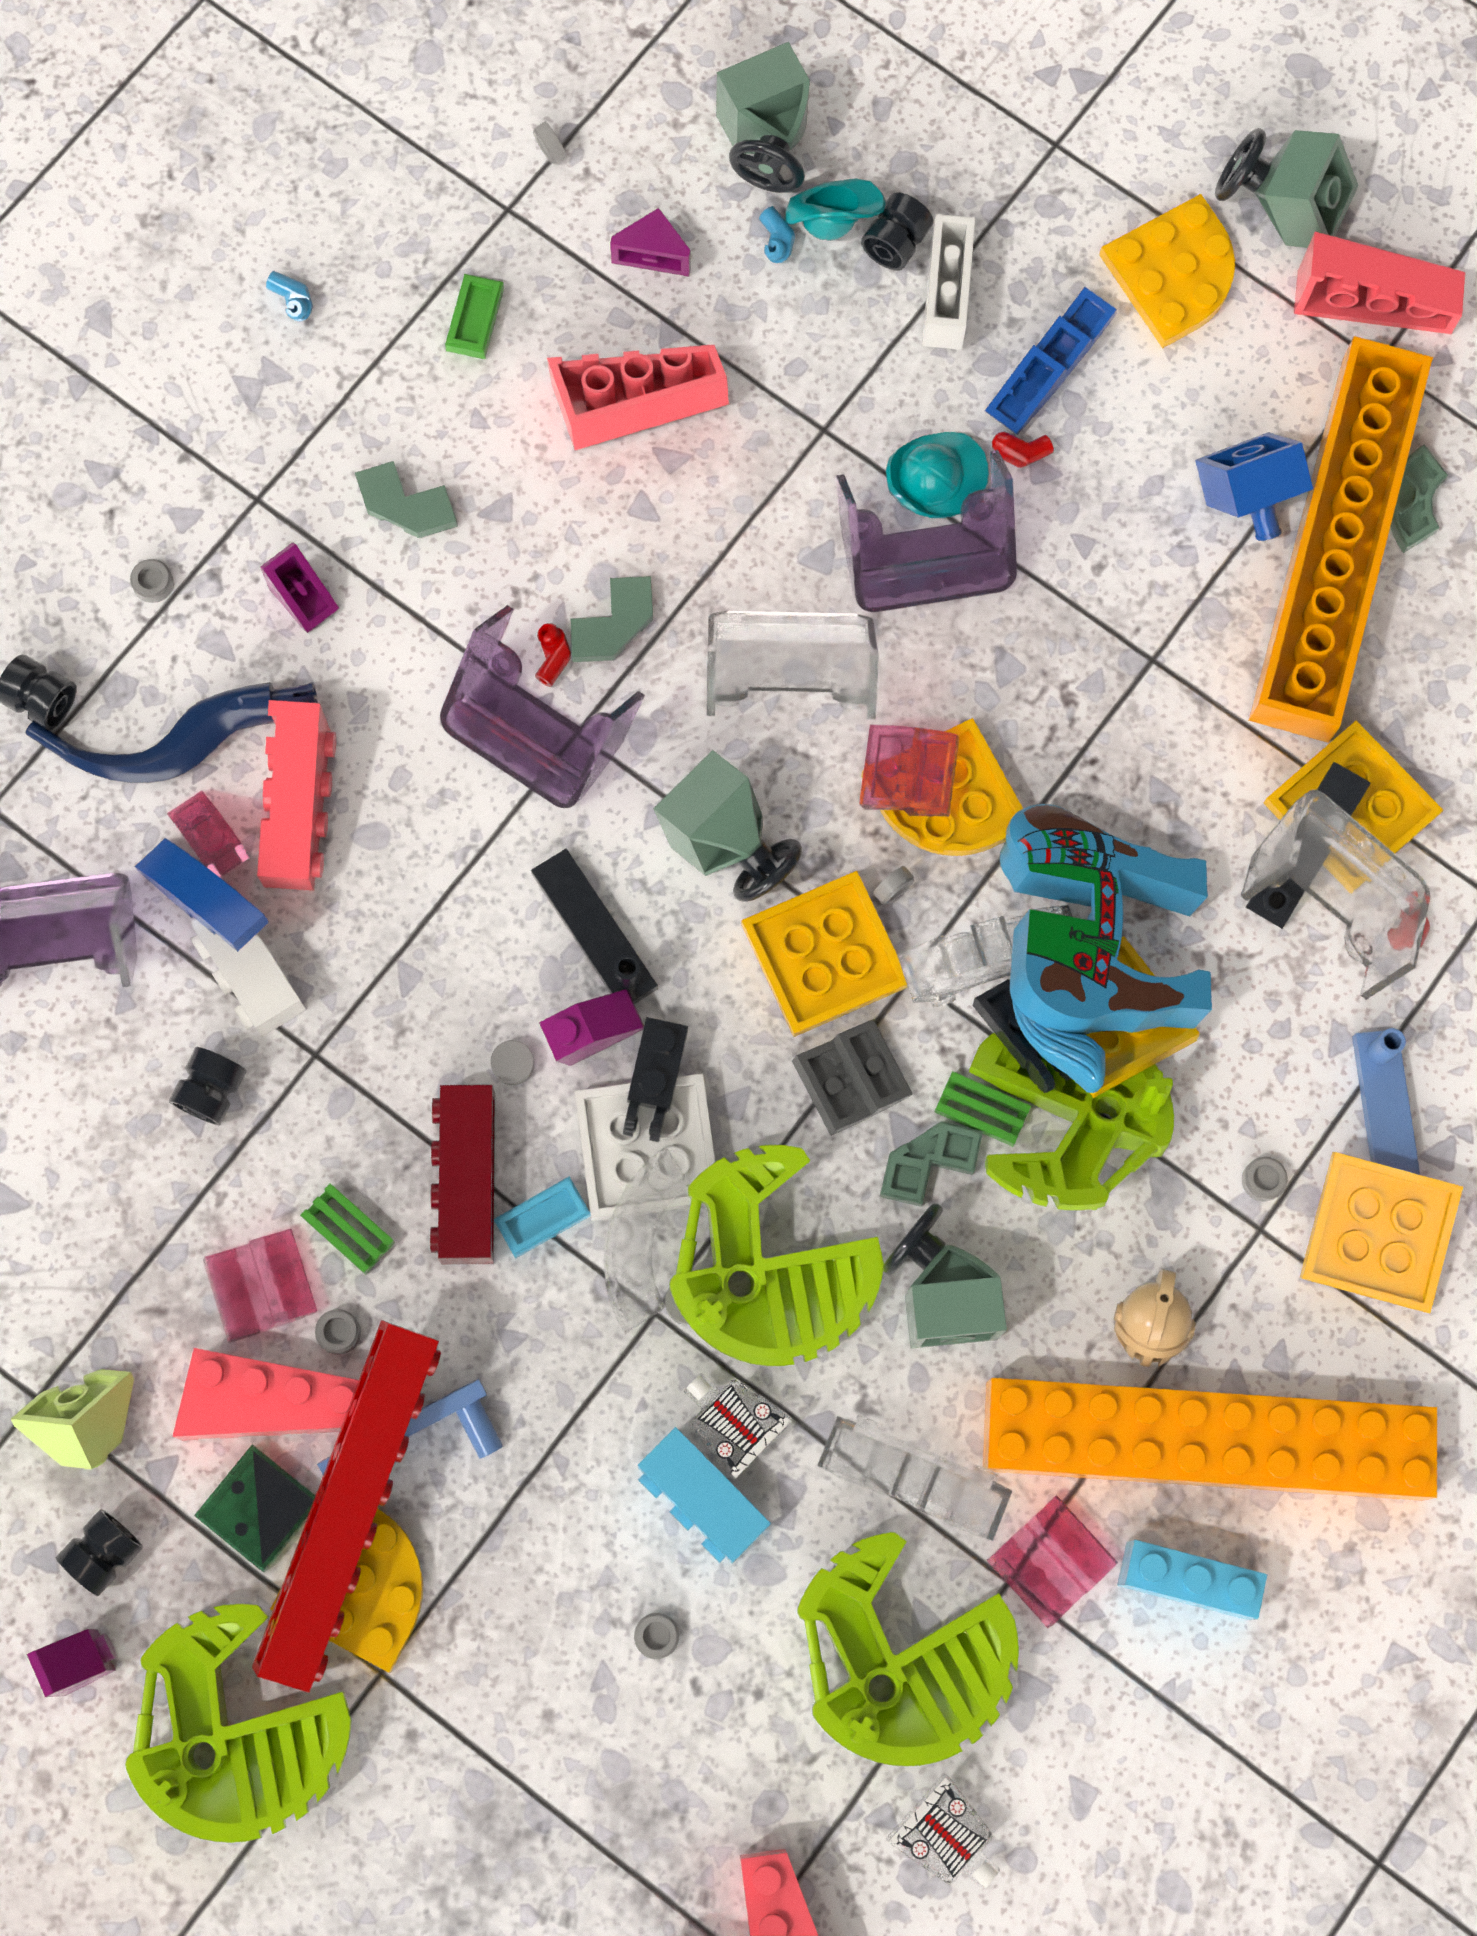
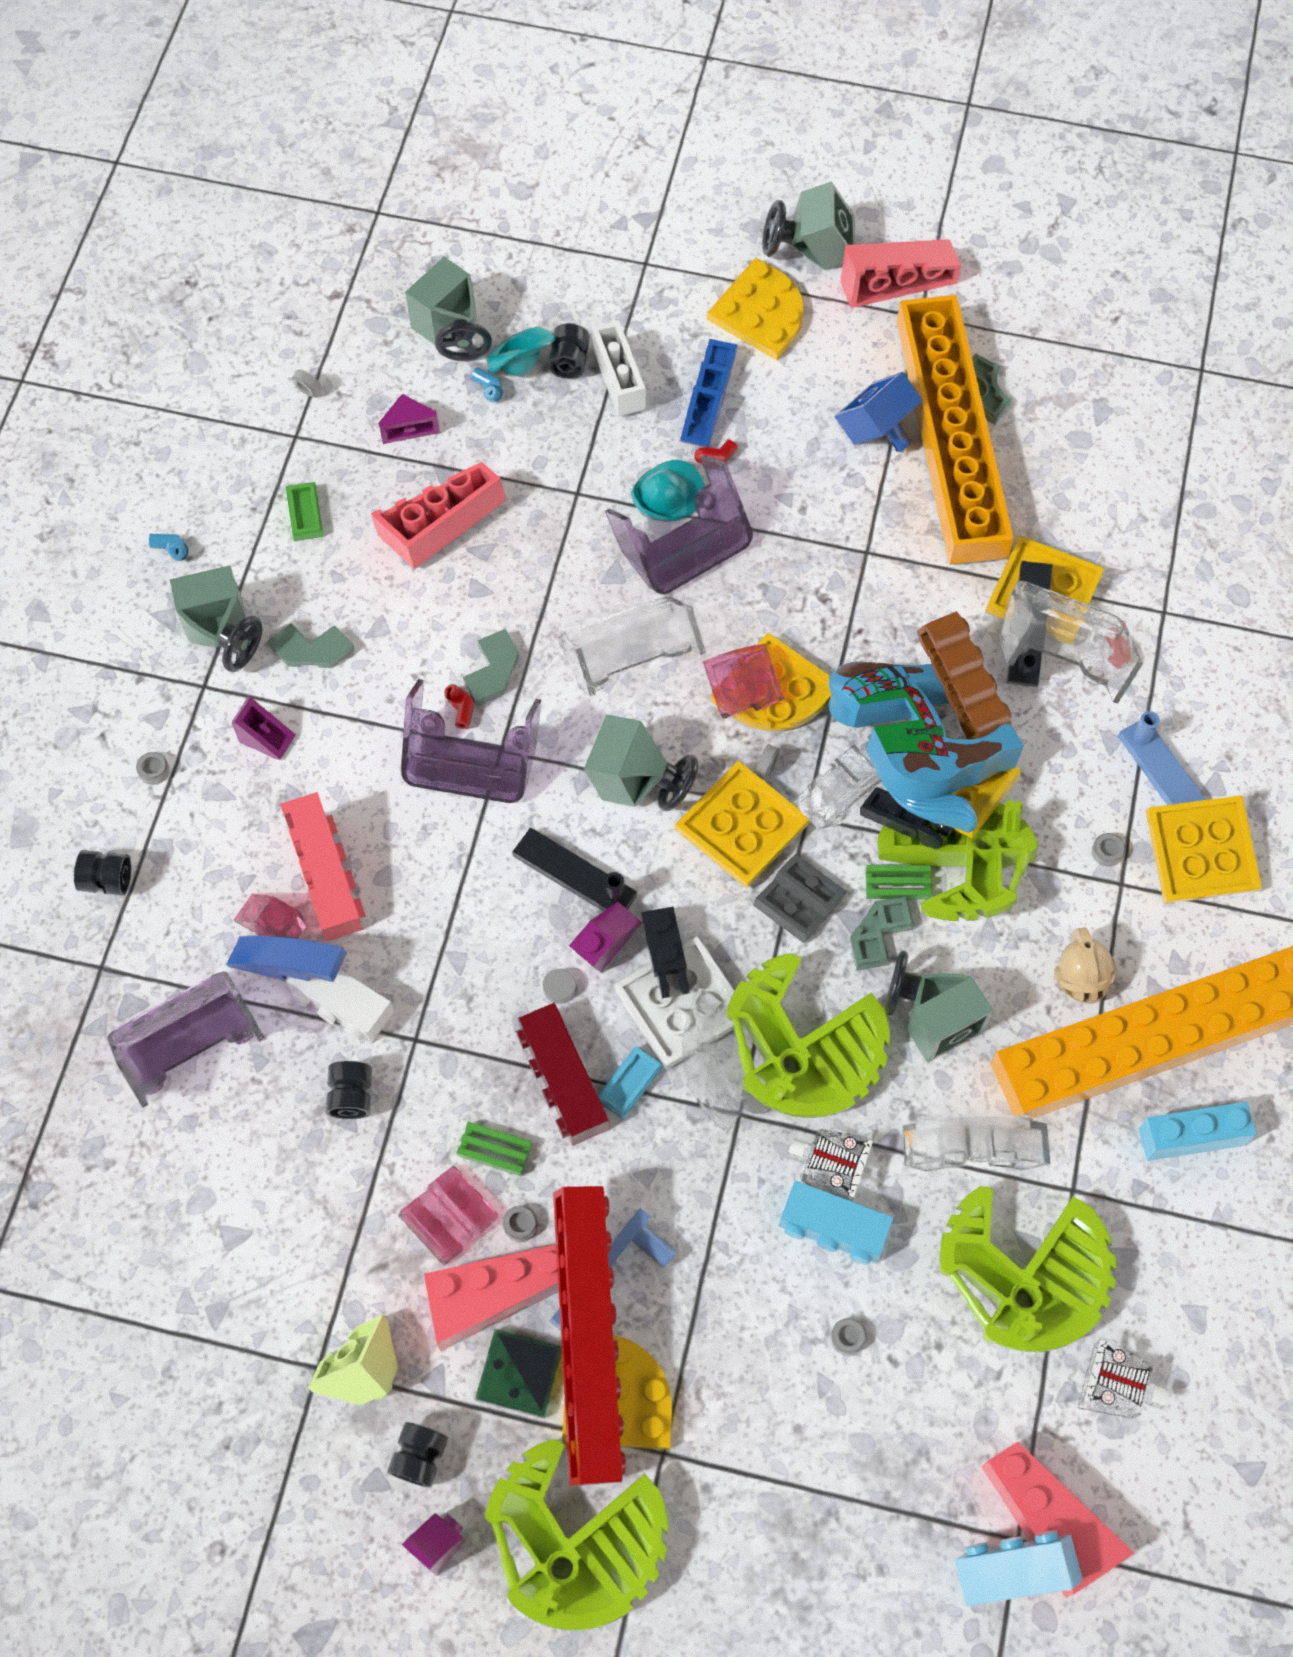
camera: 20 degrees left, 10 degrees down
(188, 742) = (227, 865): dark blue animal -> none
(304, 416) = (215, 615): none -> sand green piece
(1052, 1561) = (1096, 1163): clear pink slope -> none
(1182, 887) = (963, 675): none -> dark orange brick

